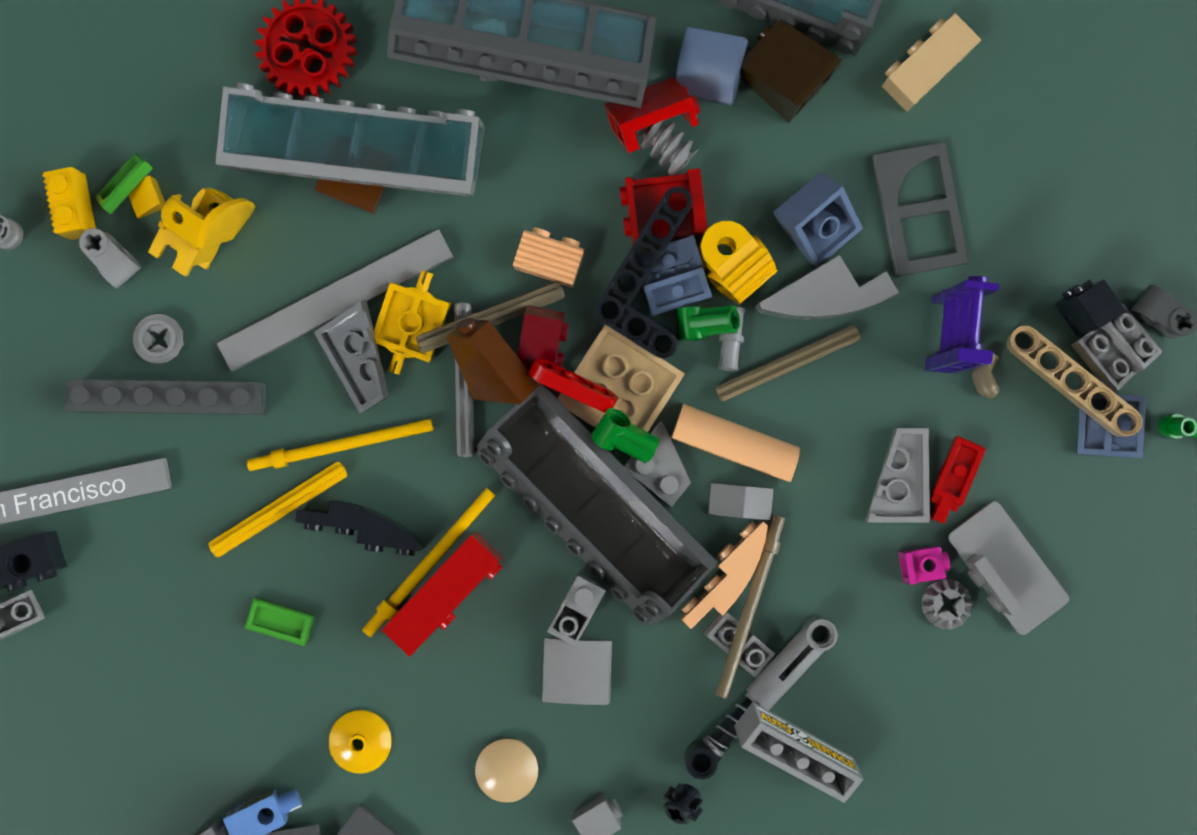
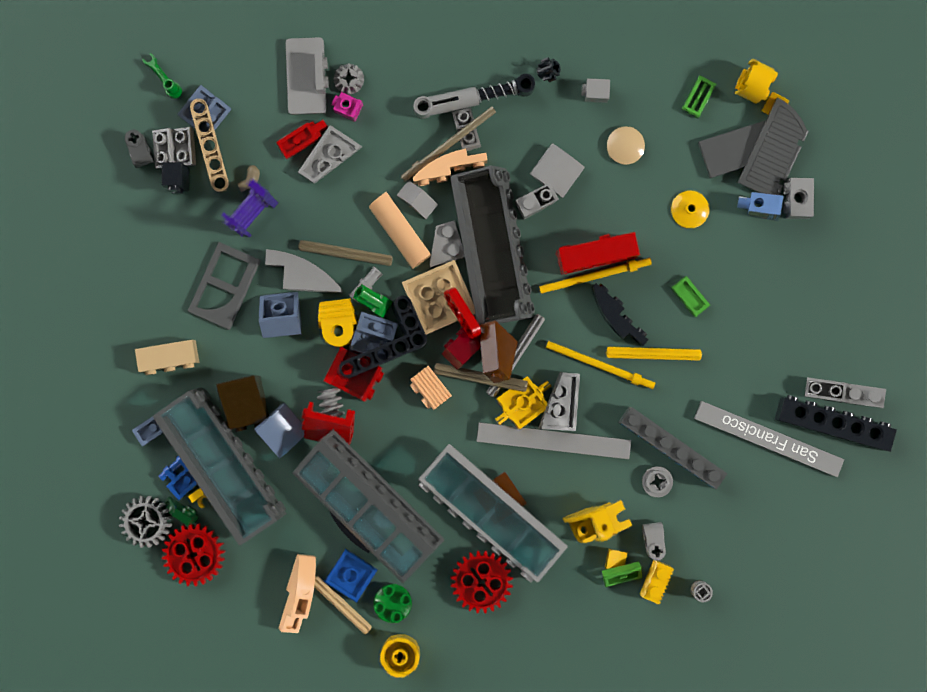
camera: 140 degrees left, 0 degrees up
(617, 432) = (455, 274): green piece -> none
(798, 752) = (474, 56): light grey brick -> none

